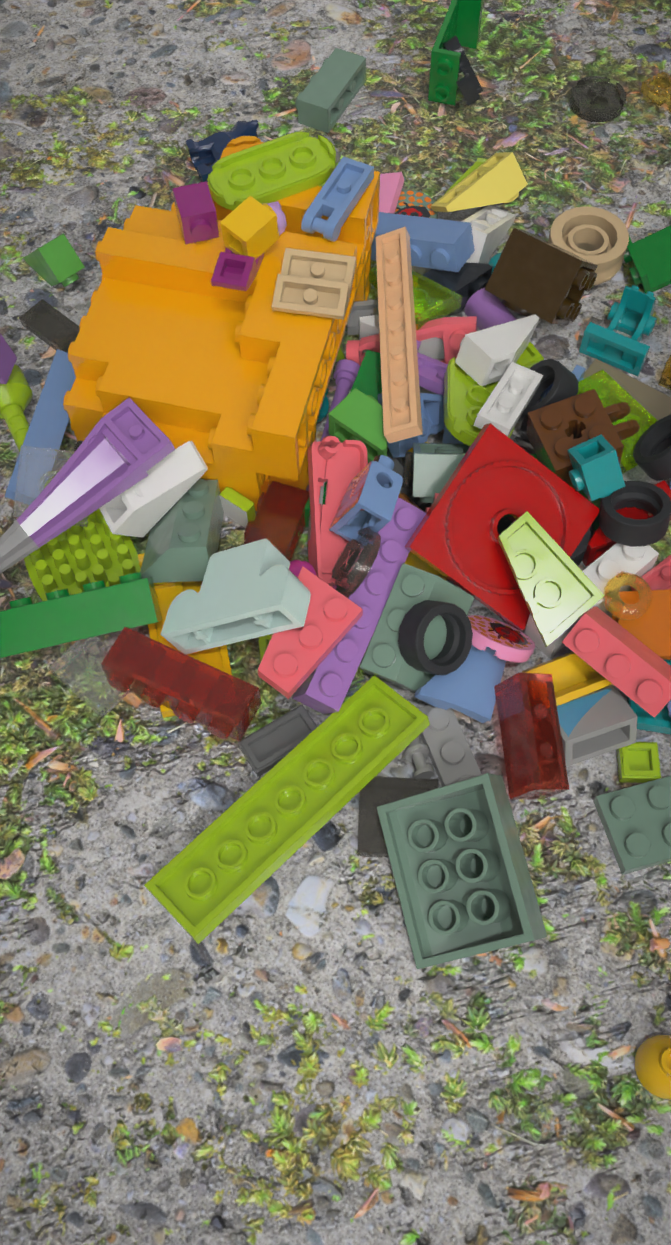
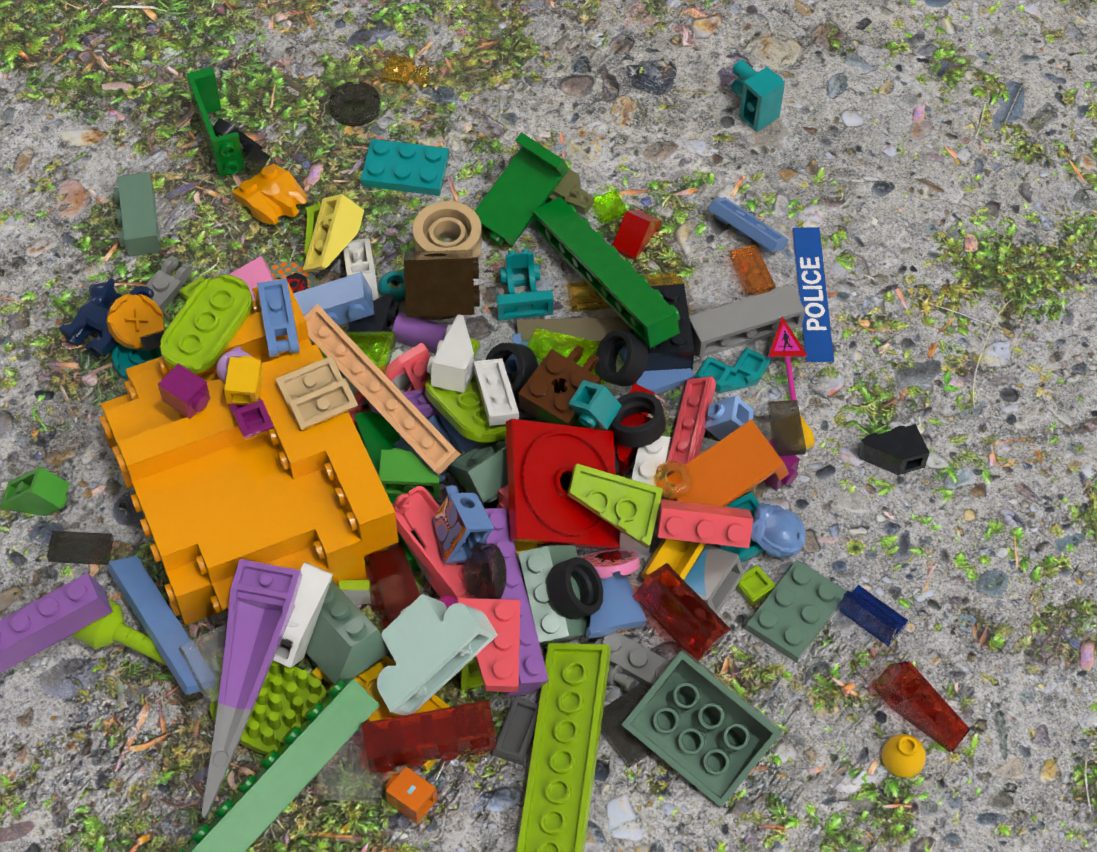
camera: 40 degrees left, 5 degrees down
(126, 729) = (410, 794): none -> orange brick
(458, 132) = (271, 194): none -> light orange plate
(600, 173) = (405, 167): none -> teal plate

